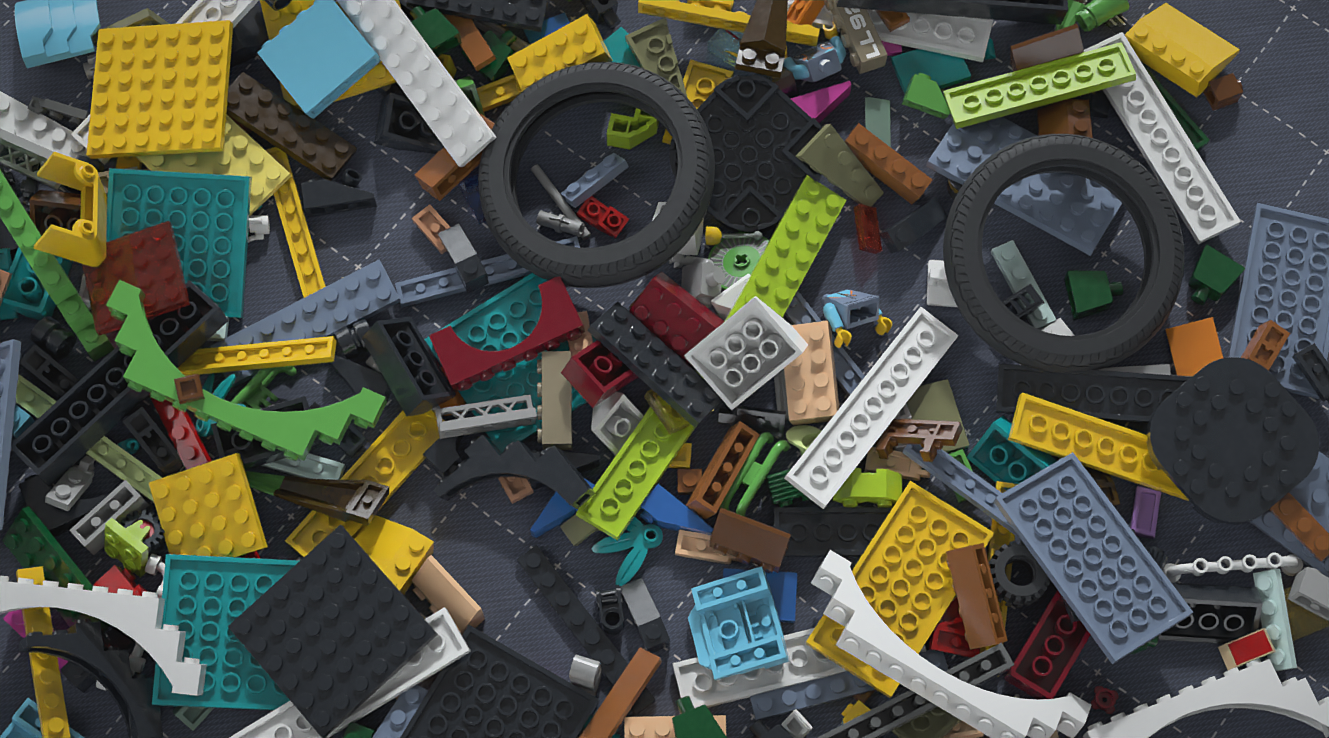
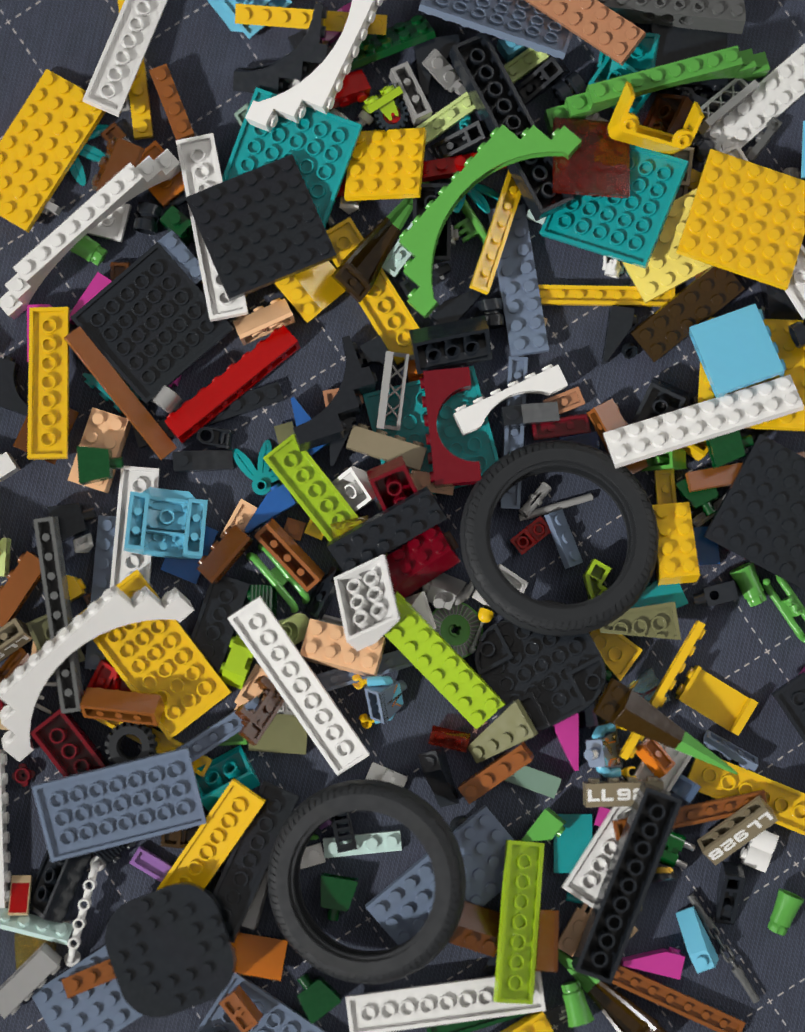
camera: 105 degrees right, 15 degrees up
(189, 388) = (476, 170): reddish brown tile -> none
(273, 547) = (349, 206): none -> white slope
(460, 213) = (565, 427): none -> dark red tile
(486, 314) = (545, 383): none -> white arch
(539, 608) = (232, 384): none -> red brick
(1013, 33) = (574, 929): none -> light nougat hinge

